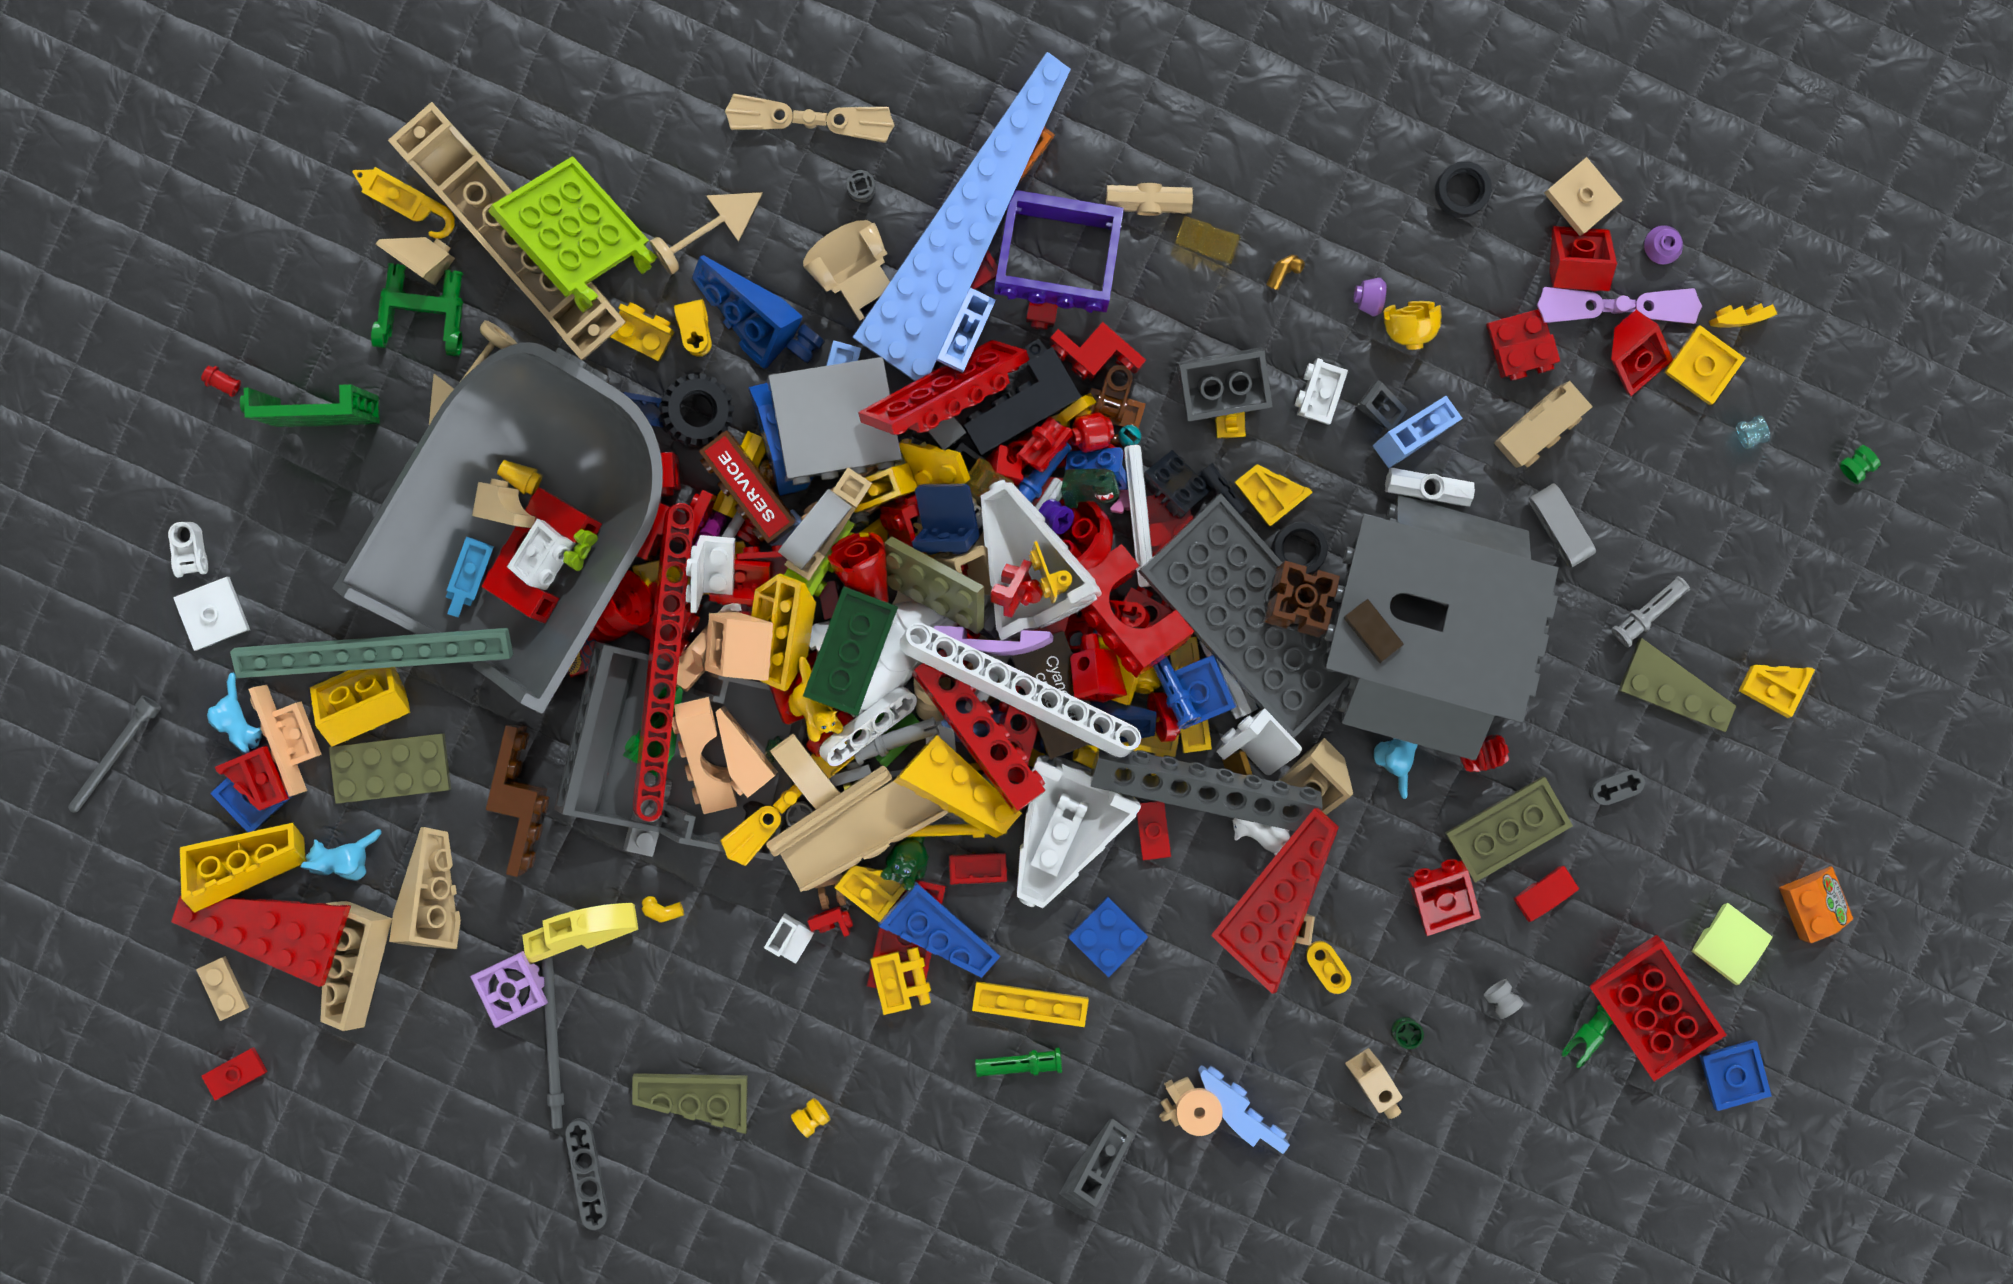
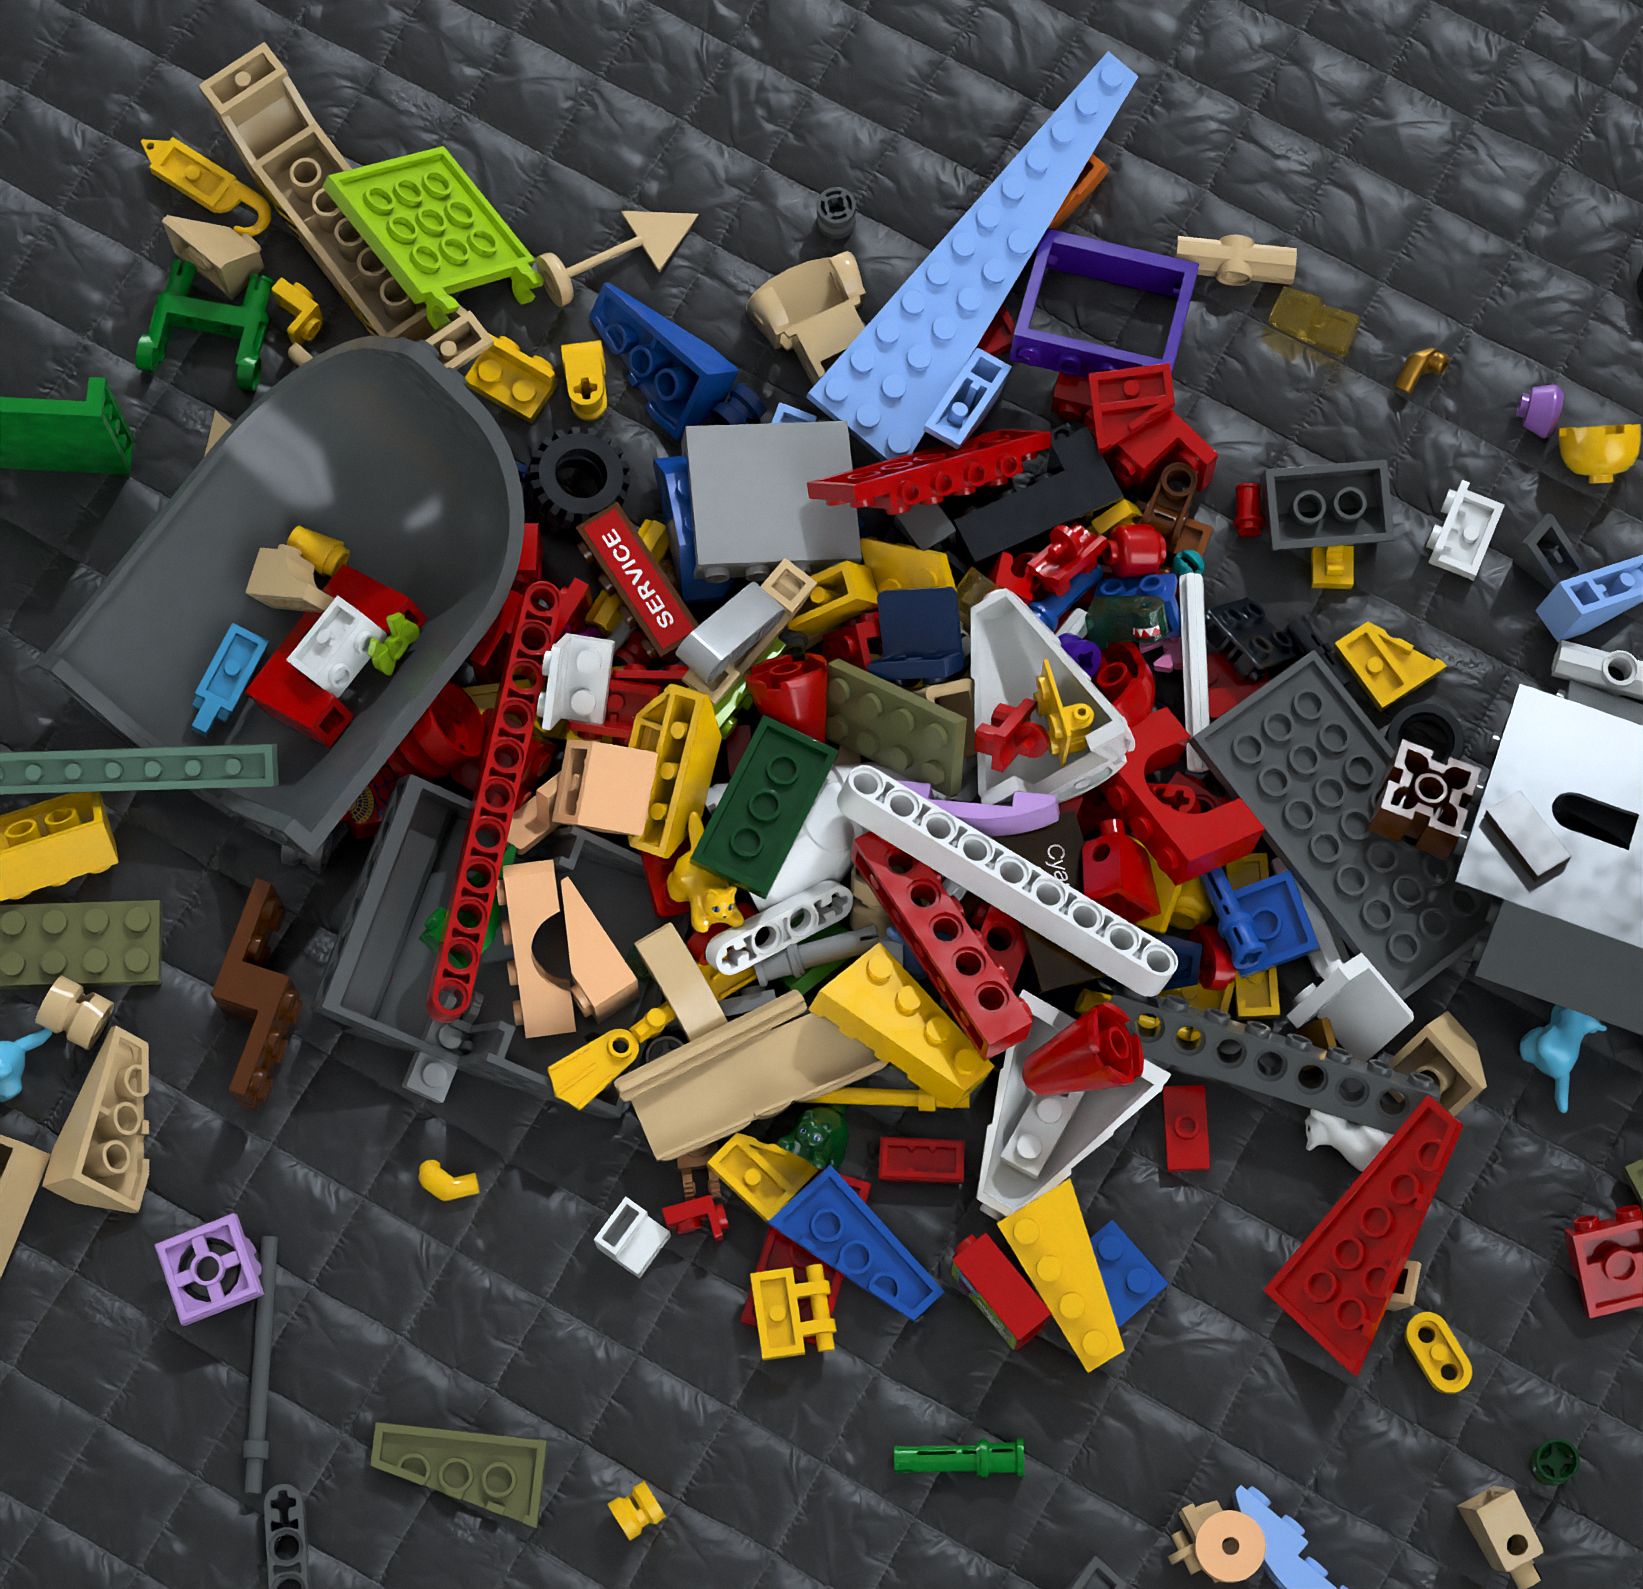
camera: 10 degrees right, 15 degrees down
(394, 819) = (74, 1012): none -> tan wheel
(483, 286) = (298, 303): none -> yellow bracket
(580, 927) = (334, 1190): light yellow slope -> none
(860, 122) = (843, 132): tan piece -> none
(1030, 1004) = (984, 1368): yellow plate -> none
(1036, 957) = (999, 1290): none -> red brick
(1076, 939) = (1061, 1263): none -> yellow wedge
(1080, 327) = (1128, 401): none -> red wing
(1084, 802) = (1086, 1055): none -> red cone
(1169, 387) = (1248, 519): none -> red pin

